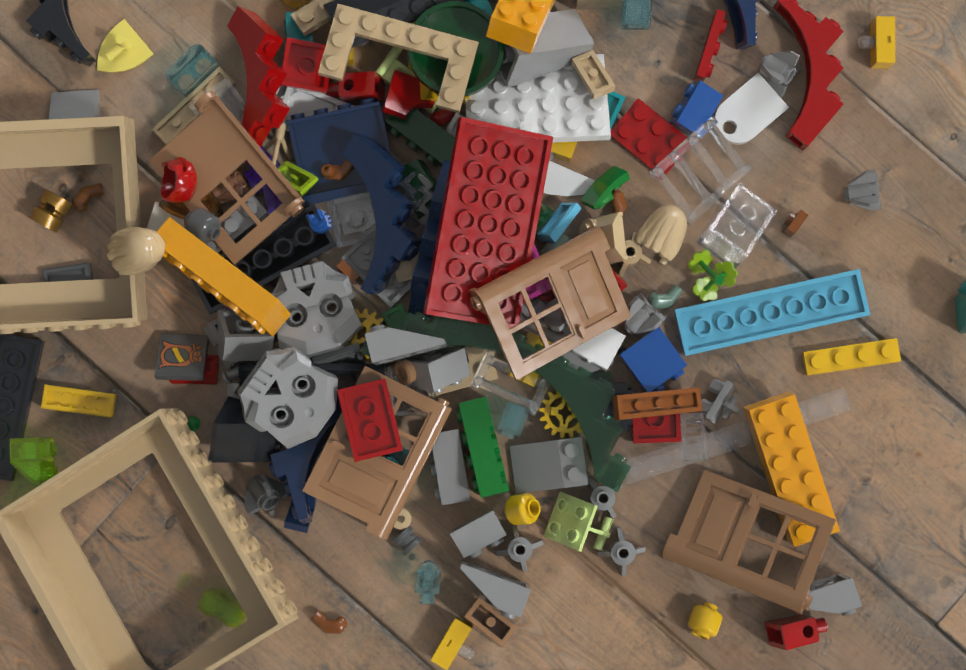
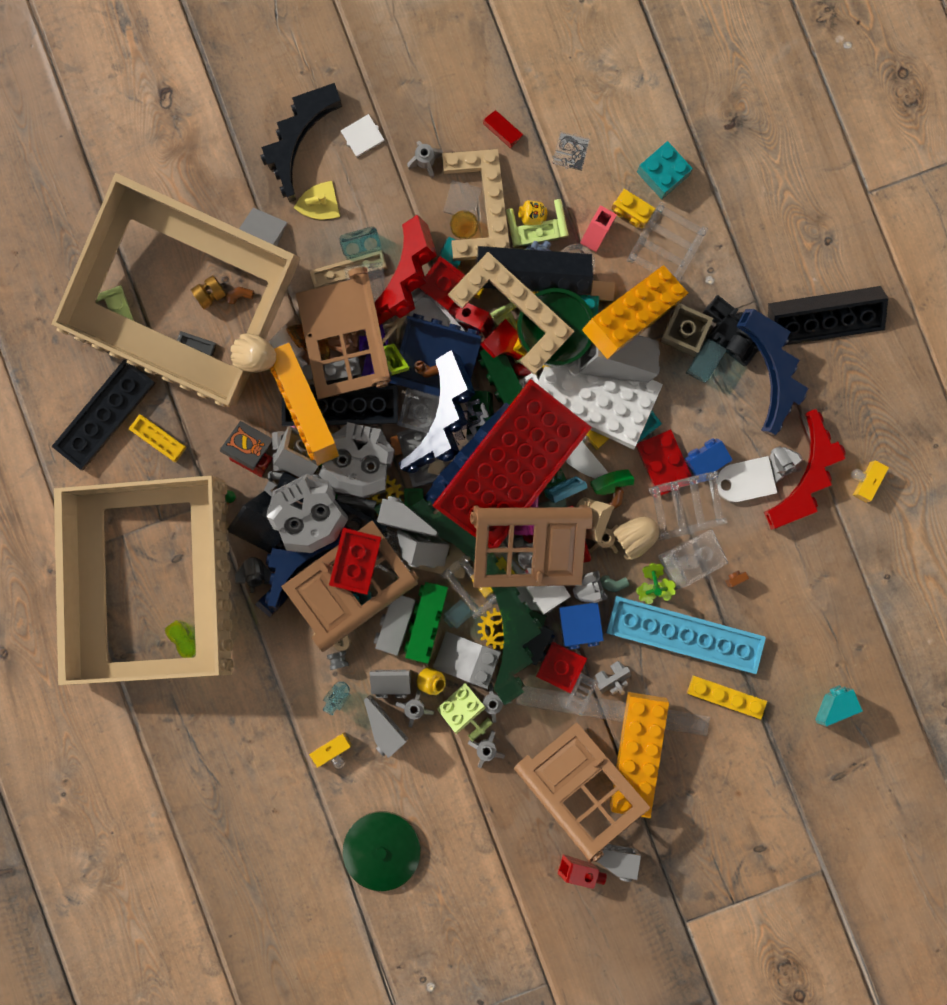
camera: 30 degrees right, 0 degrees up
(34, 458) = (105, 463): clear neon green slope -> none
(178, 180) = (309, 319): red hair -> none
(203, 225) = (309, 360): dark grey head -> none
(319, 222) = (393, 400): blue piece -> none
(329, 626) = (251, 692): dark orange arm -> none
(405, 372) = (398, 539): medium nougat tile -> none
(489, 622) = (365, 749): medium nougat brick -> none
(593, 74) = (646, 396): tan plate -> none
(656, 403) = (566, 657): dark orange plate -> none
(705, 621) = (520, 831): yellow head -> none
(711, 46) = (743, 420): red plate -> none
(864, 191) = (799, 582): light grey brick -> none

